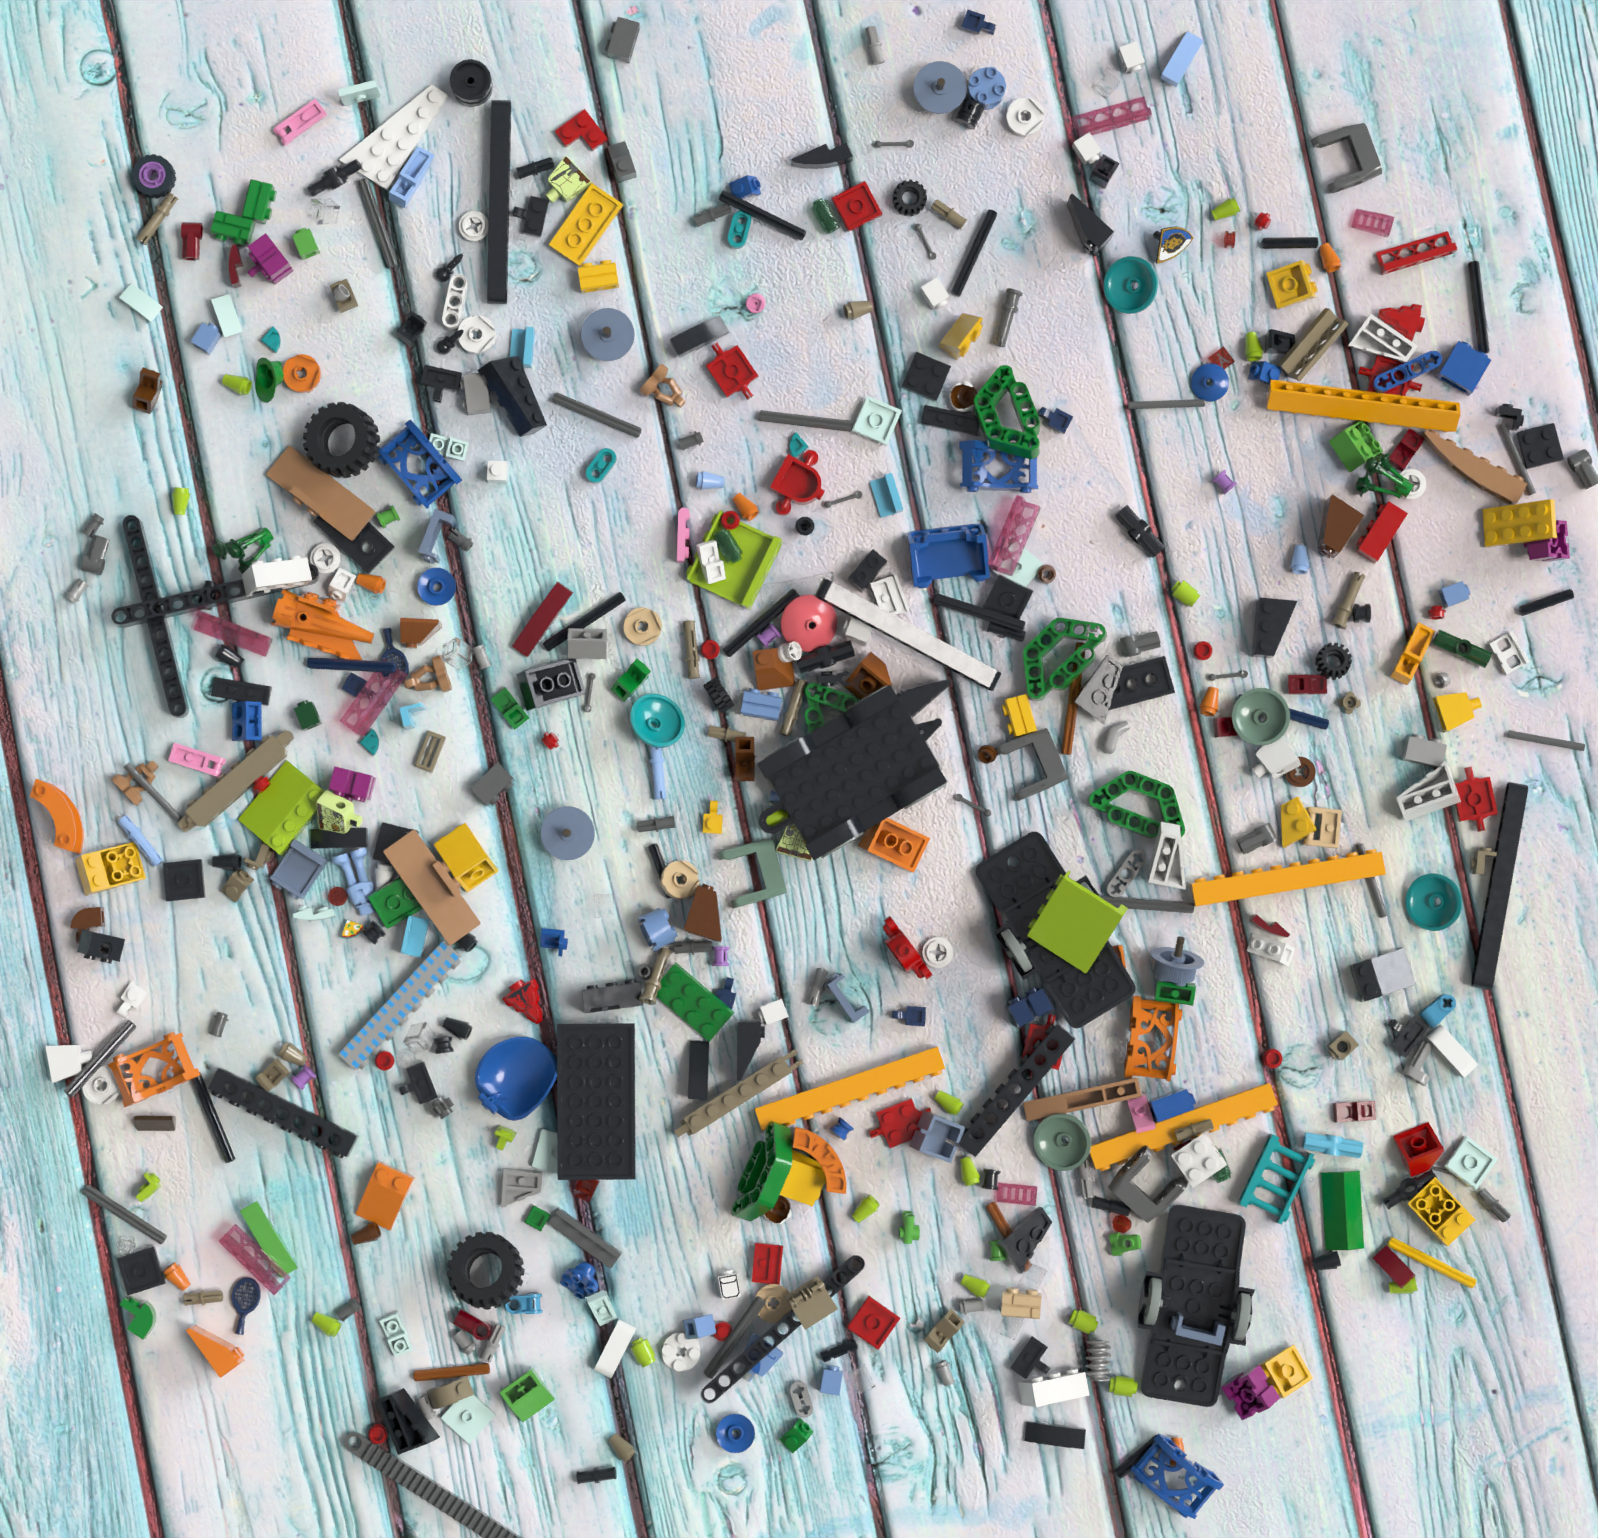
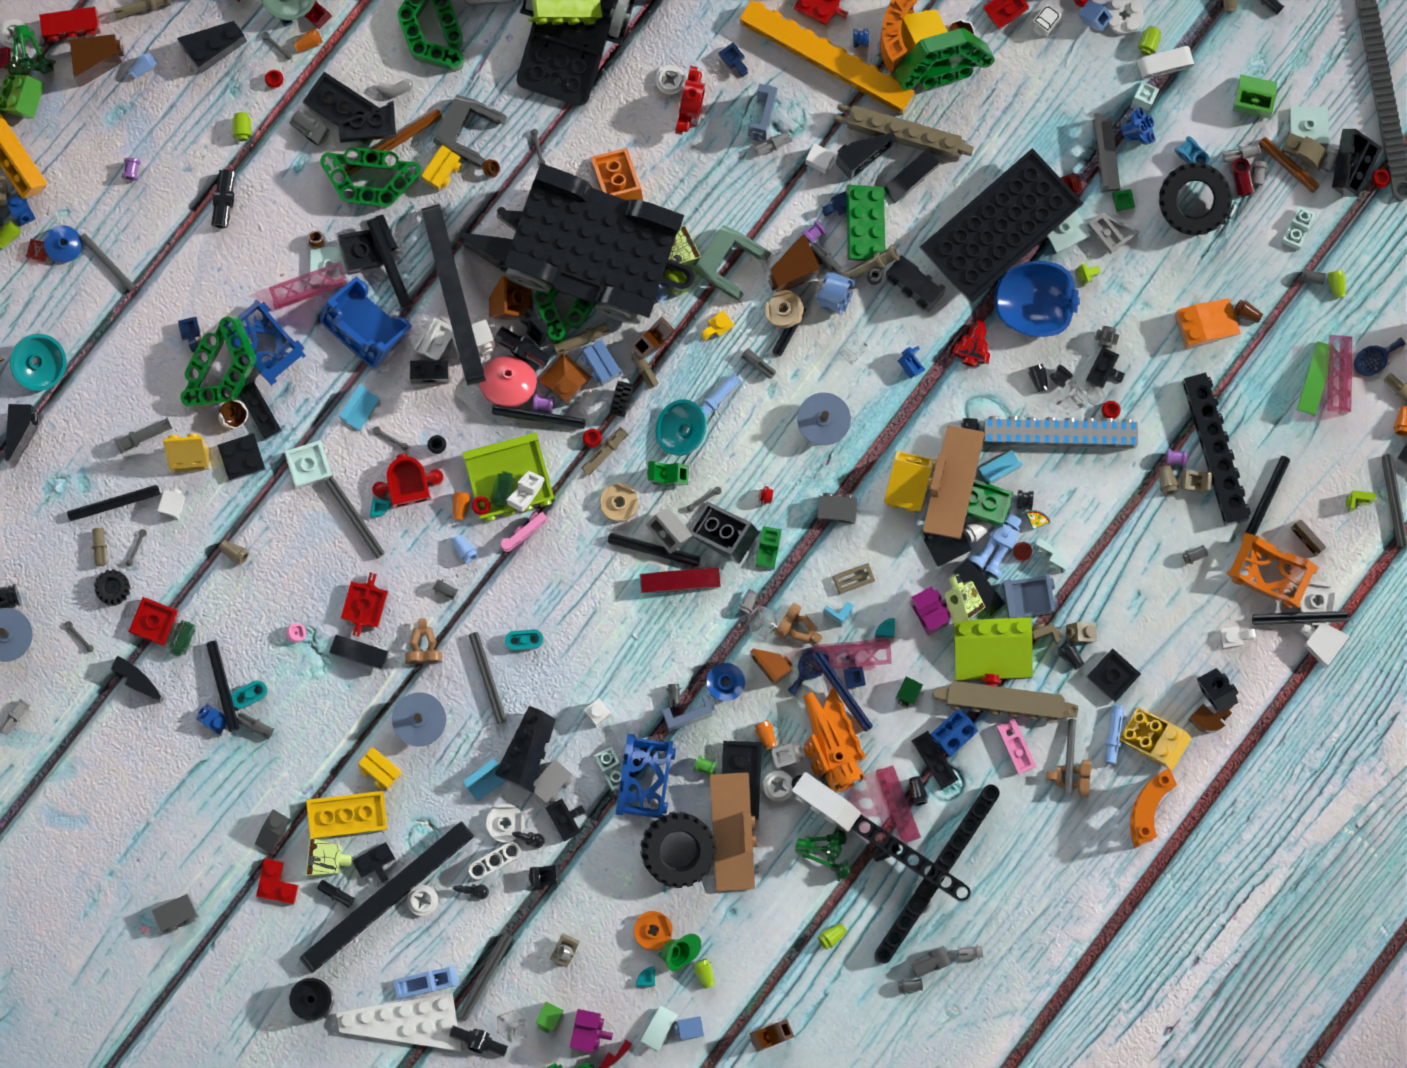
camera: 125 degrees left, 5 degrees down
(789, 652) = (542, 375): white wheel -> none

